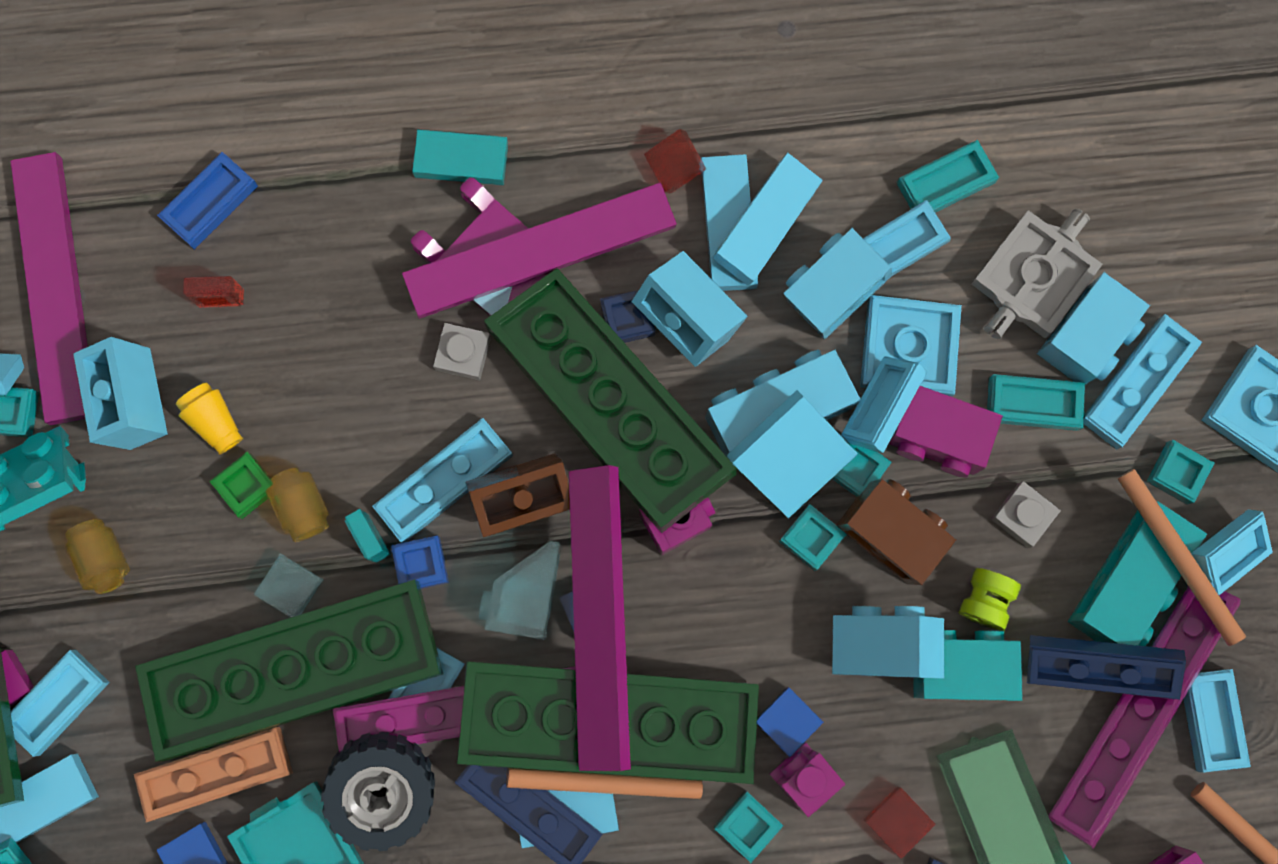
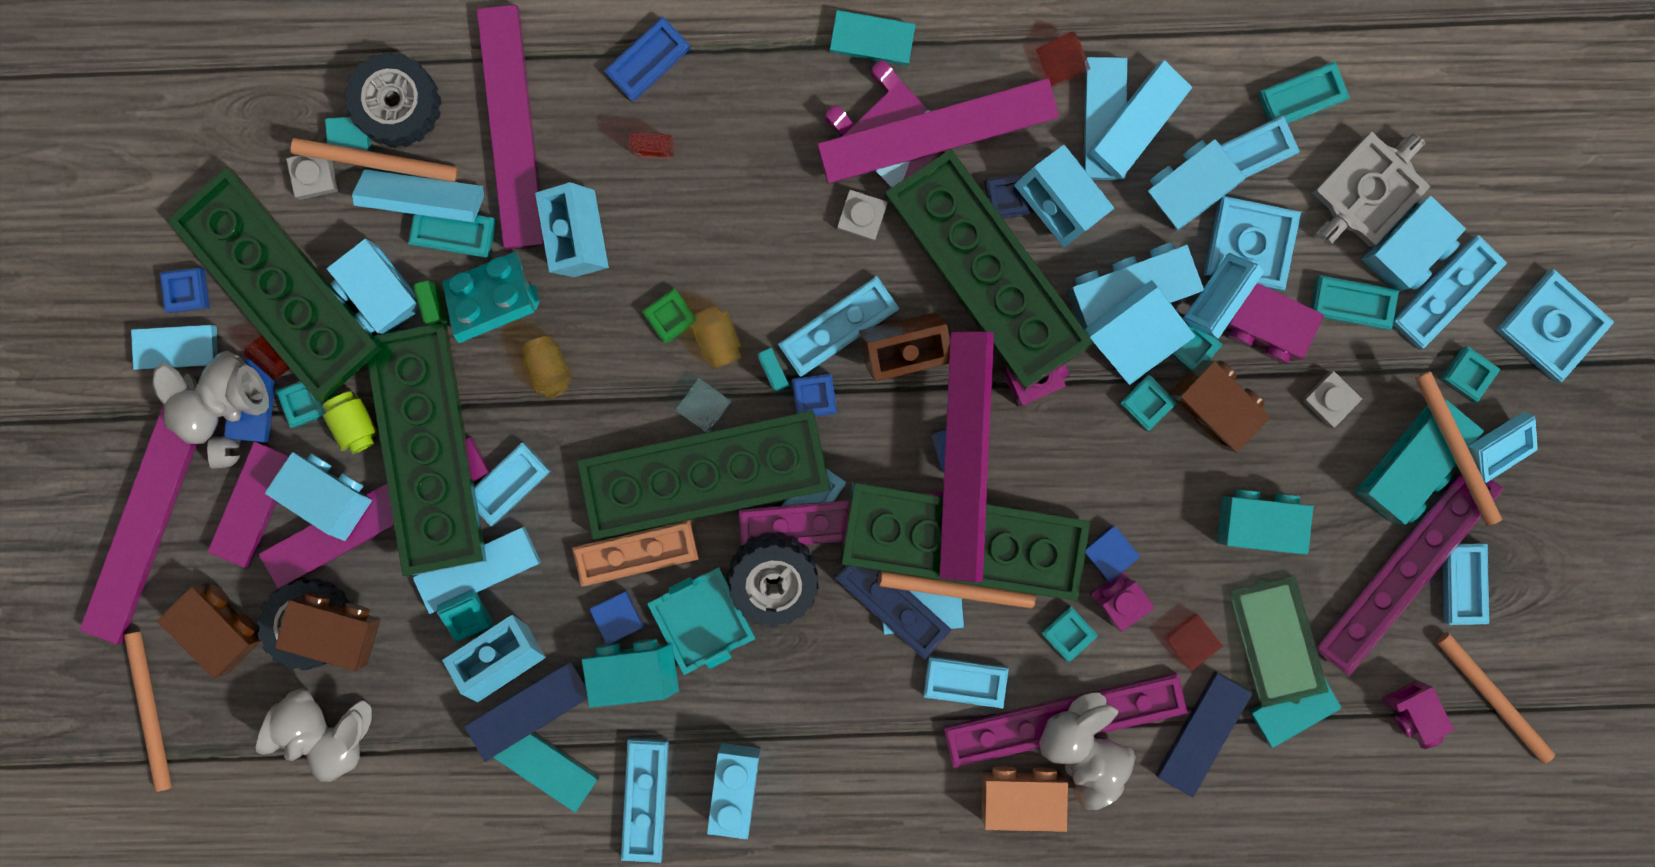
camera: 10 degrees right, 10 degrees up
(209, 417) = (644, 256): yellow cone -> none
(523, 595) = (901, 432): clear light blue slope -> none
(888, 644) = (1203, 500): medium azure brick -> none
(990, 599) = (1288, 477): lime wheel -> none
(1106, 667) = (1381, 533): dark blue tile -> none

